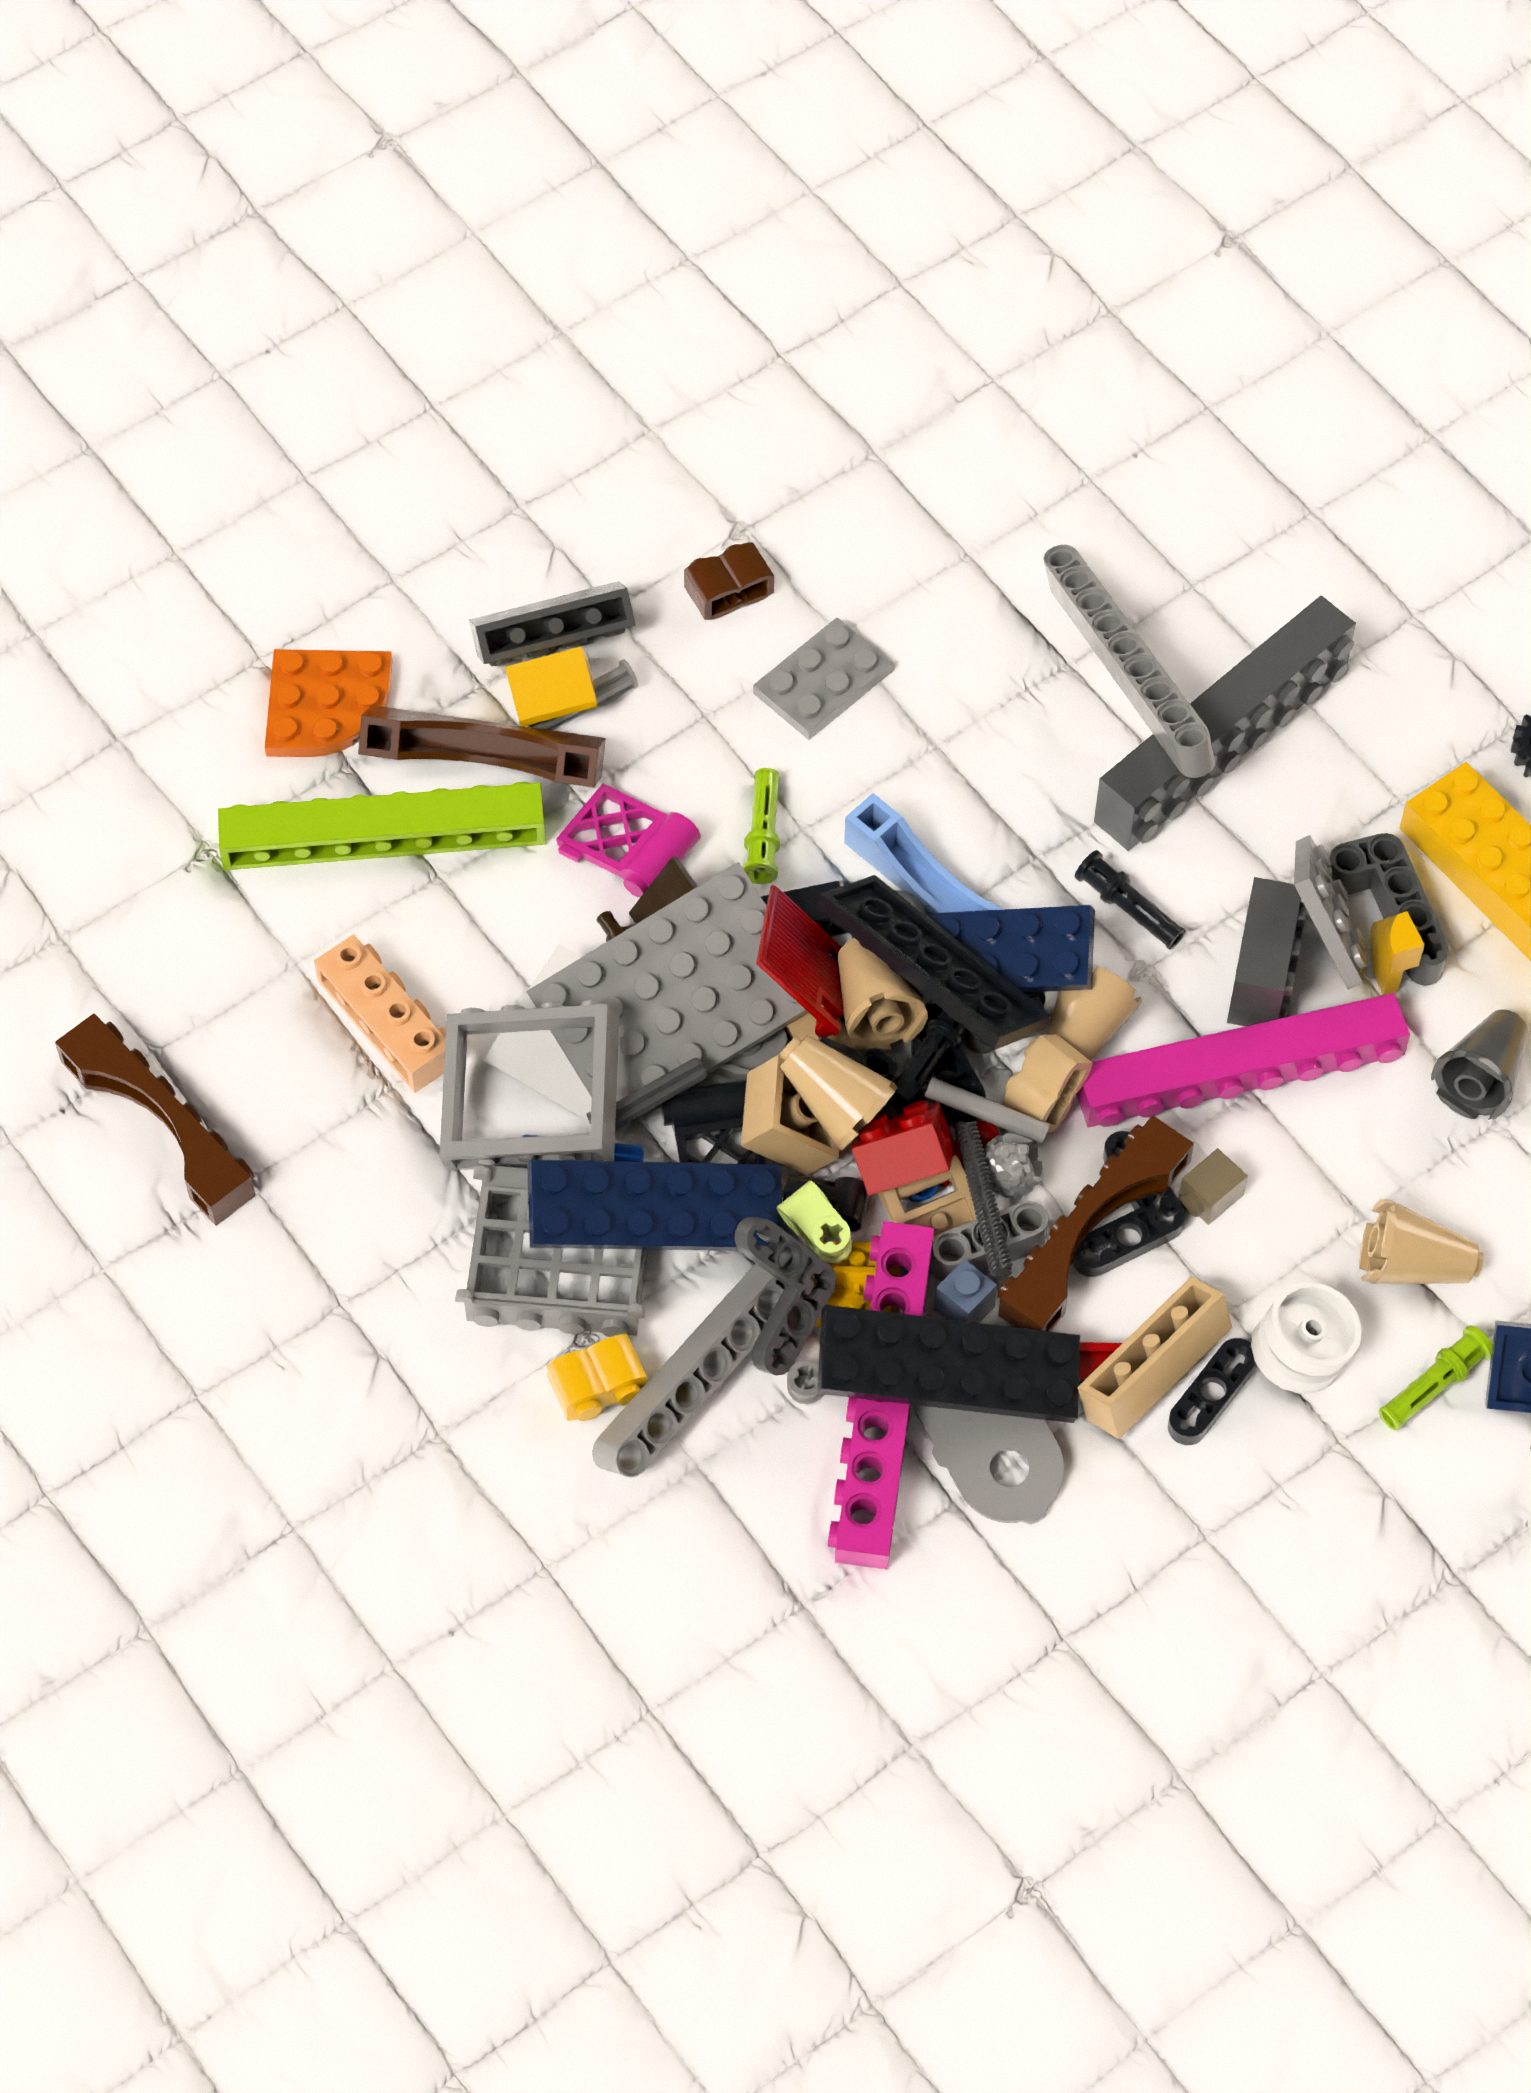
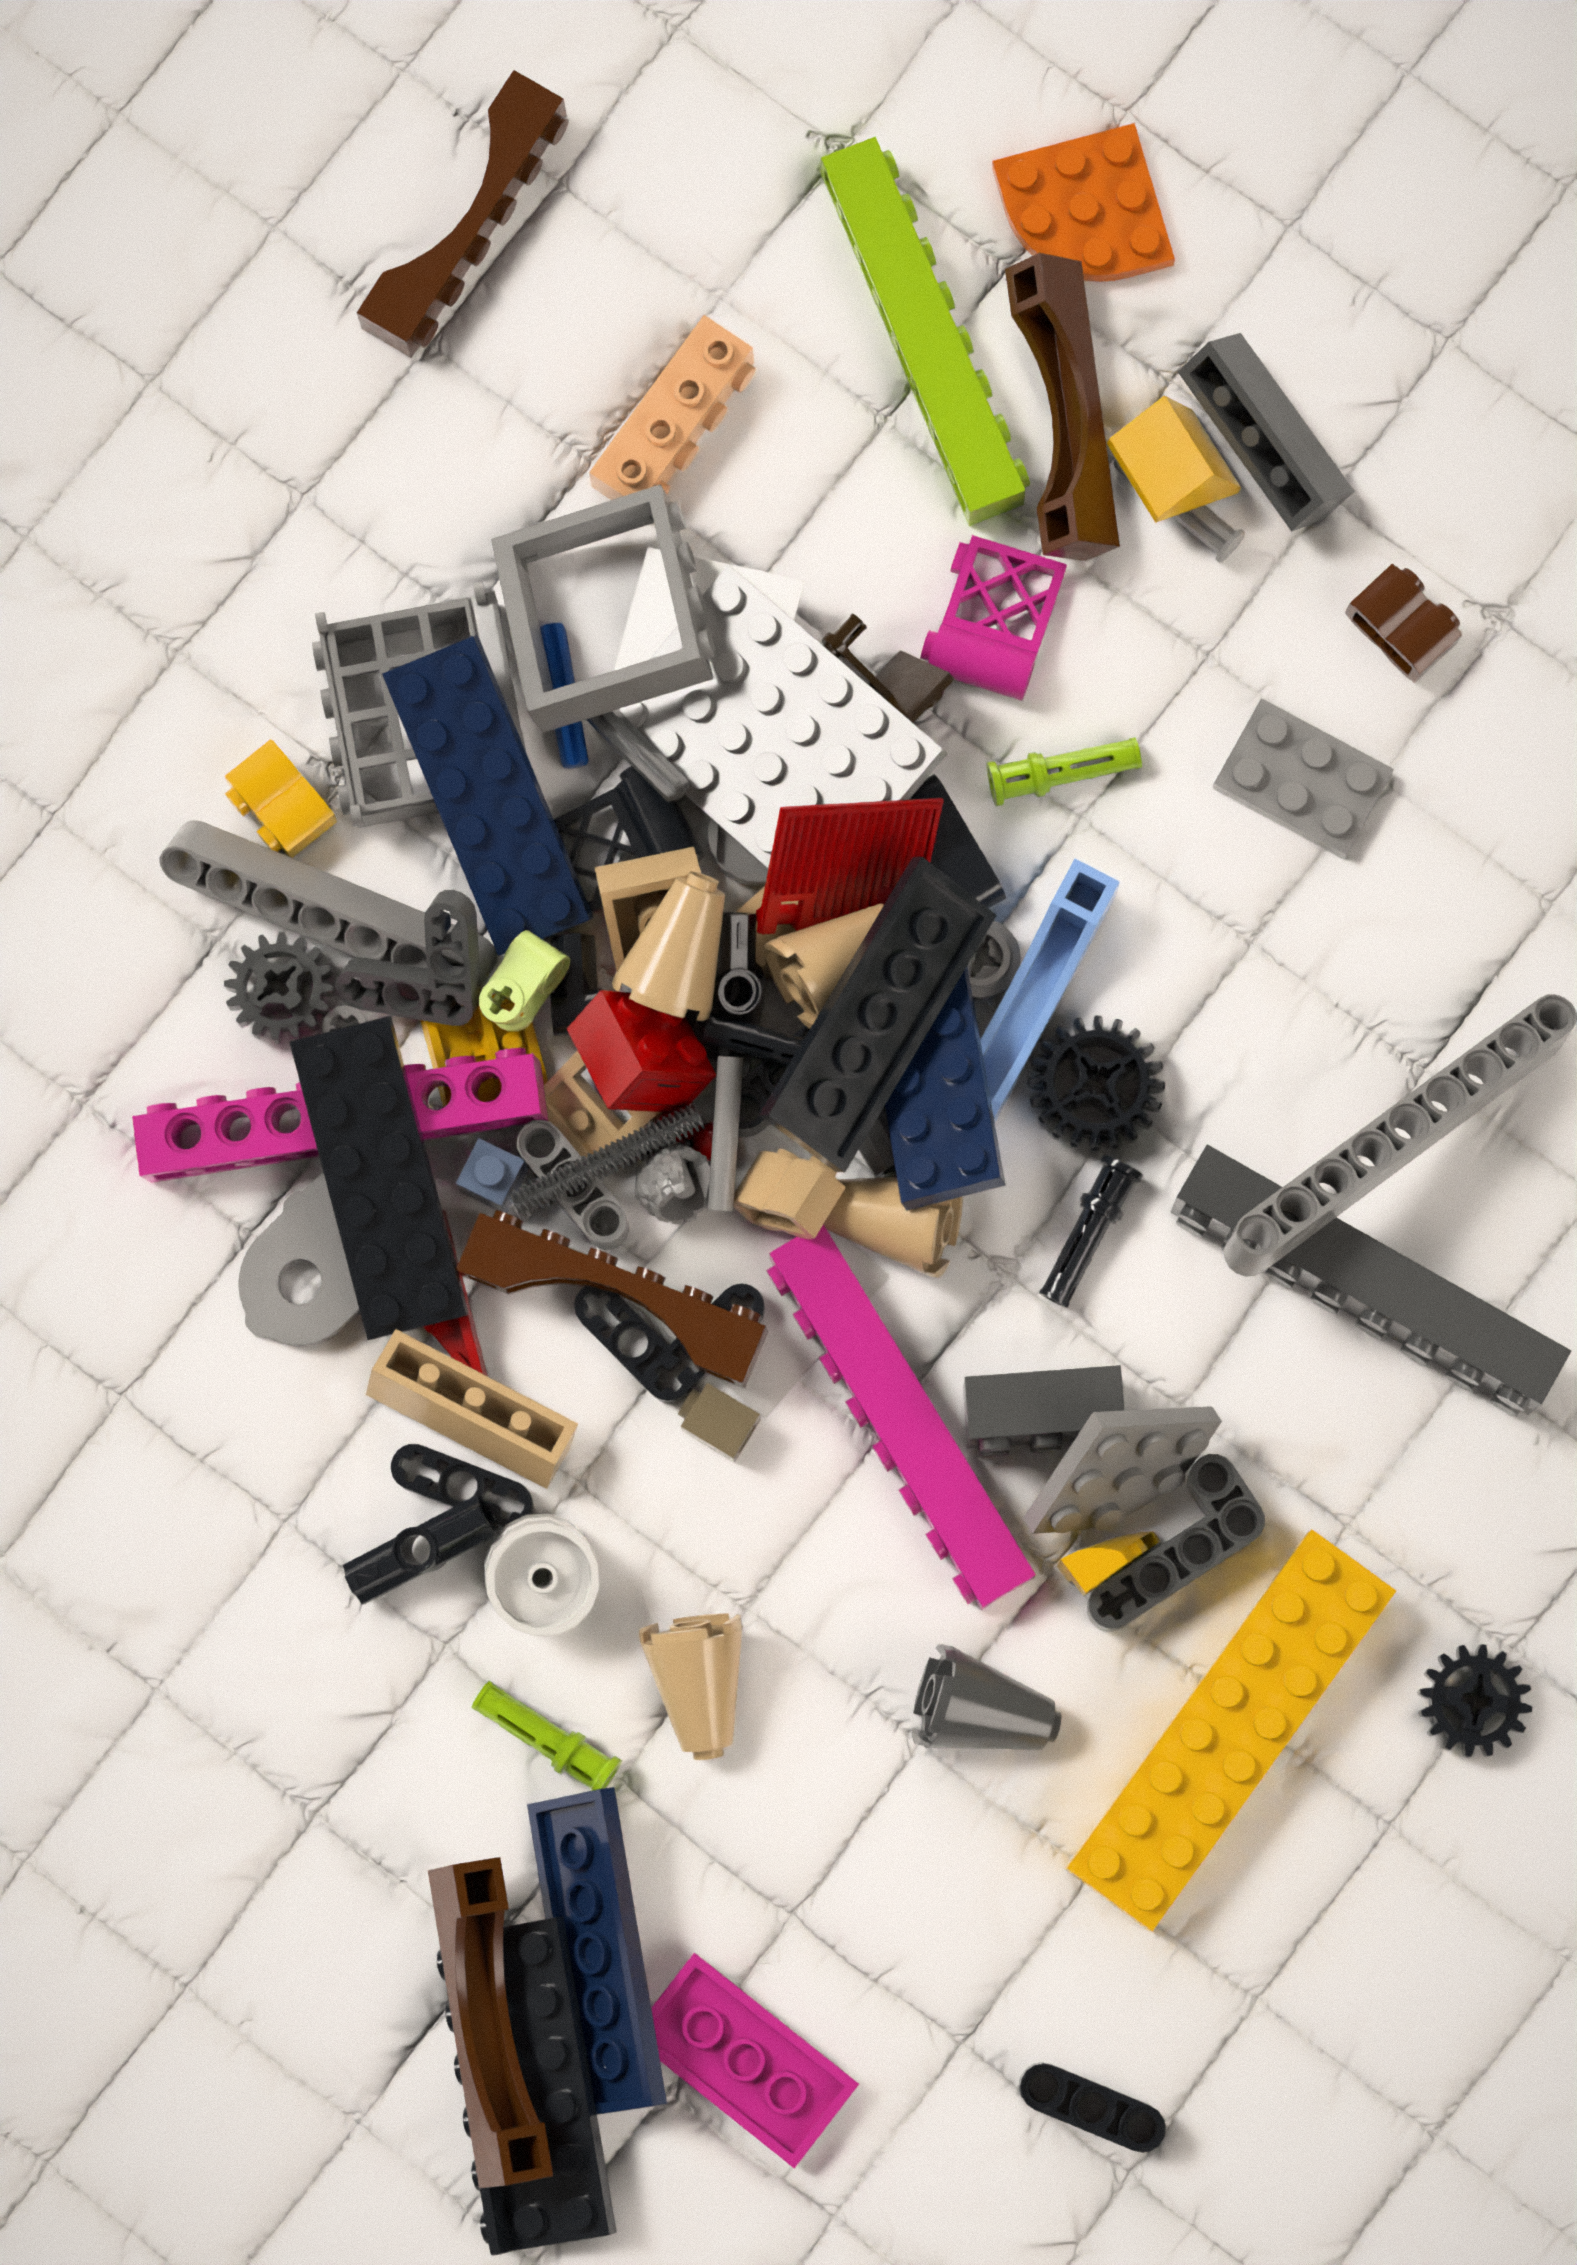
camera: 80 degrees right, 20 degrees up
(746, 1432) = (265, 1001): none -> dark grey gear
(1032, 850) = (1109, 1105): none -> black gear
(1268, 1452) = (448, 1536): none -> black piece

